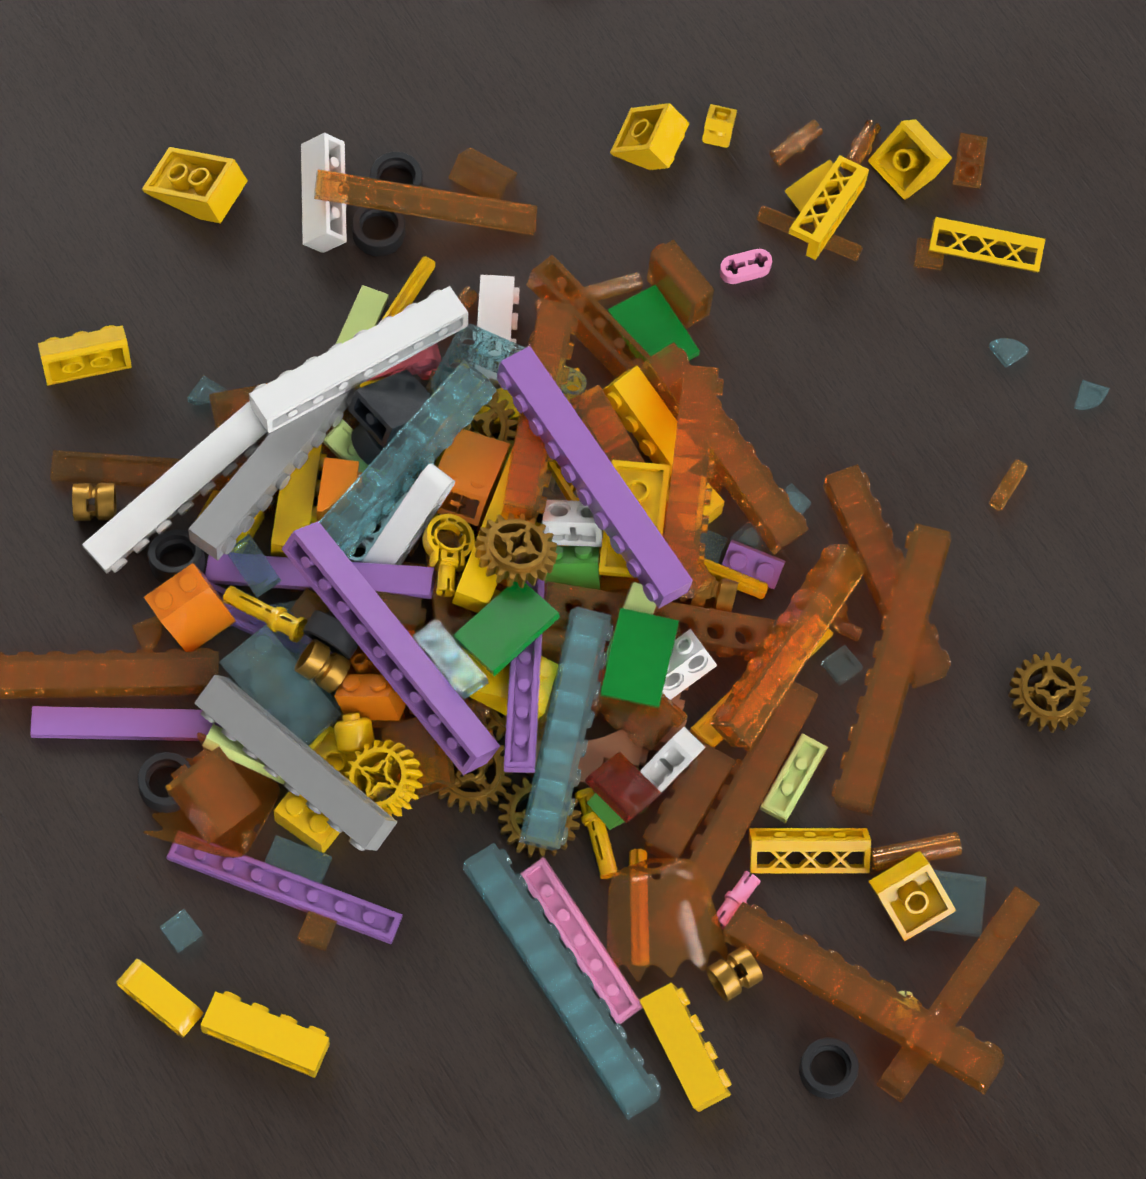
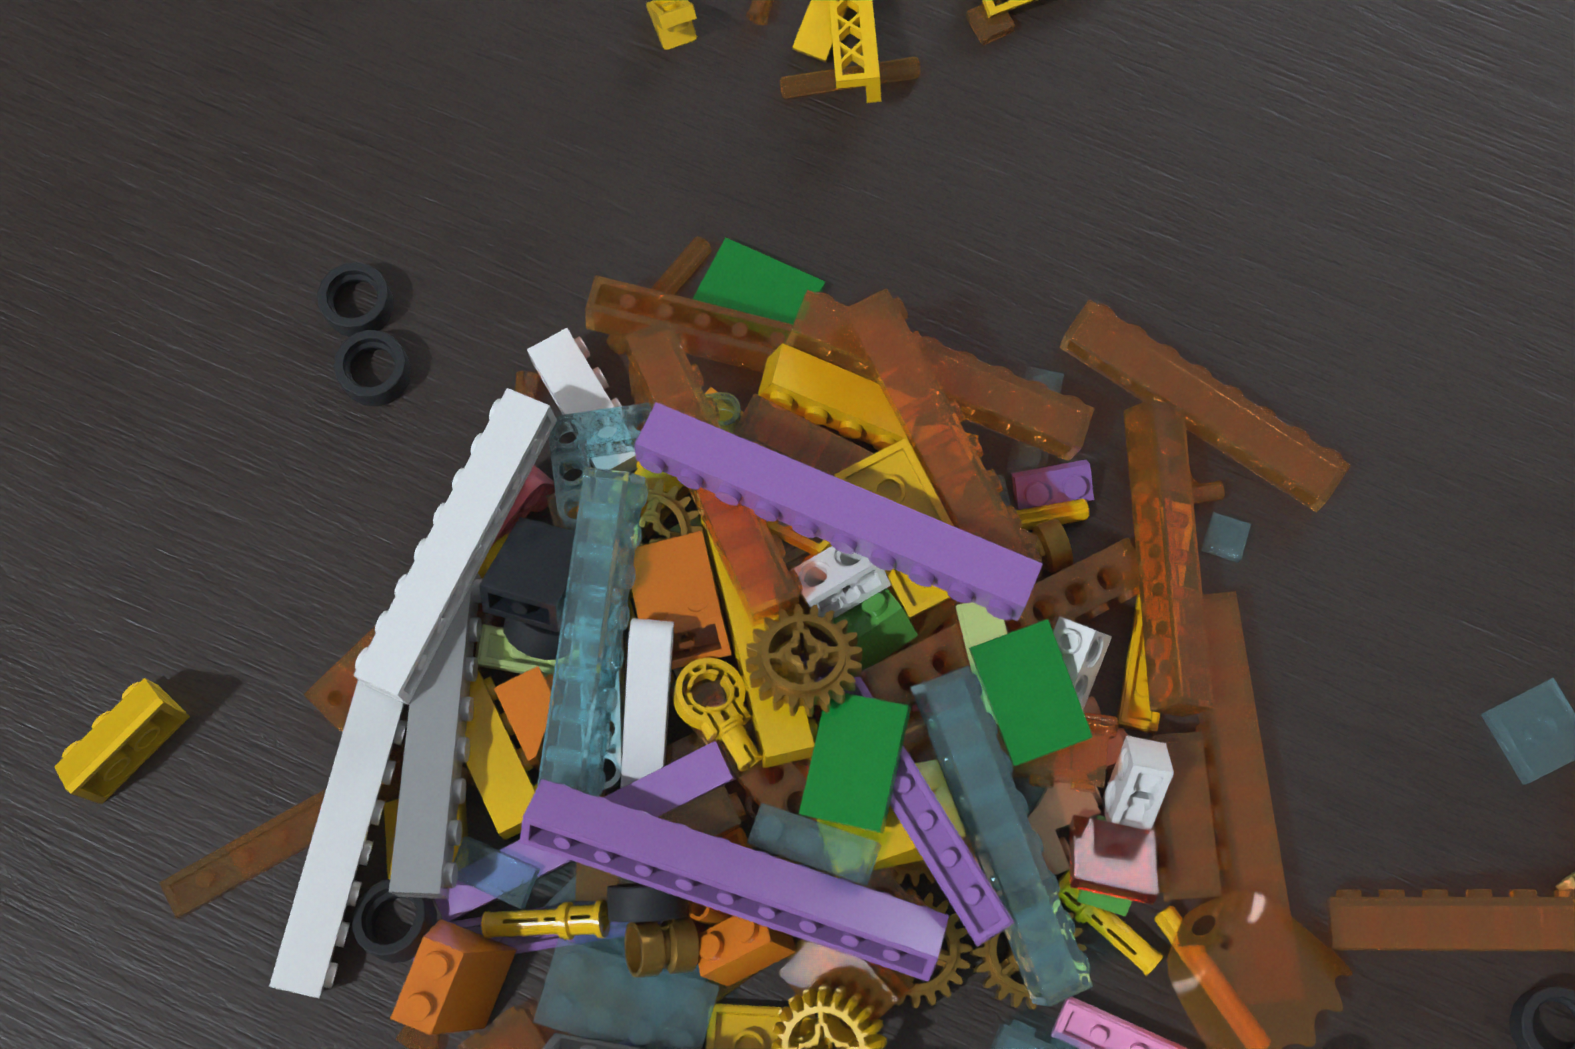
camera: 25 degrees left, 5 degrees up
(104, 497) = (264, 913): pearl gold wheel -> none
(196, 183) = (125, 448): yellow slope -> none
(201, 392) = (293, 687): clear light blue tile -> none
(322, 220) = (282, 367): white brick -> none
(353, 733) = (753, 1003): yellow head -> none
(364, 313) = (422, 484): yellowish green tile -> none
(412, 286) = (456, 422): yellow axle -> none
(425, 202) = (403, 306): clear orange tile -> none
(481, 174) = (449, 234): clear orange panel -> none
(650, 136) = (607, 76): yellow slope -> none
(680, 283) = (754, 217): clear orange brick -> none
(725, 978) = (1377, 988): pearl gold wheel -> none
(734, 898) = (1311, 893): bright pink pin -> none
(745, 264) = (802, 150): bright pink beam -> none
(793, 778) = (1272, 703): yellowish green tile -> none
(809, 840) = (1346, 769): yellow fence -> none
(892, 670) = (1299, 510): clear orange brick -> none
(912, 895) = (1499, 756): yellow slope -> none
(931, 847) = (1459, 701): clear orange piece -> none
(1008, 350) = (1145, 73): clear light blue tile -> none
(1008, 485) = (1252, 219): clear orange axle -> none
(1071, 688) = (1482, 404): pearl gold gear -> none
(1090, 395) = (1262, 68): clear light blue tile -> none

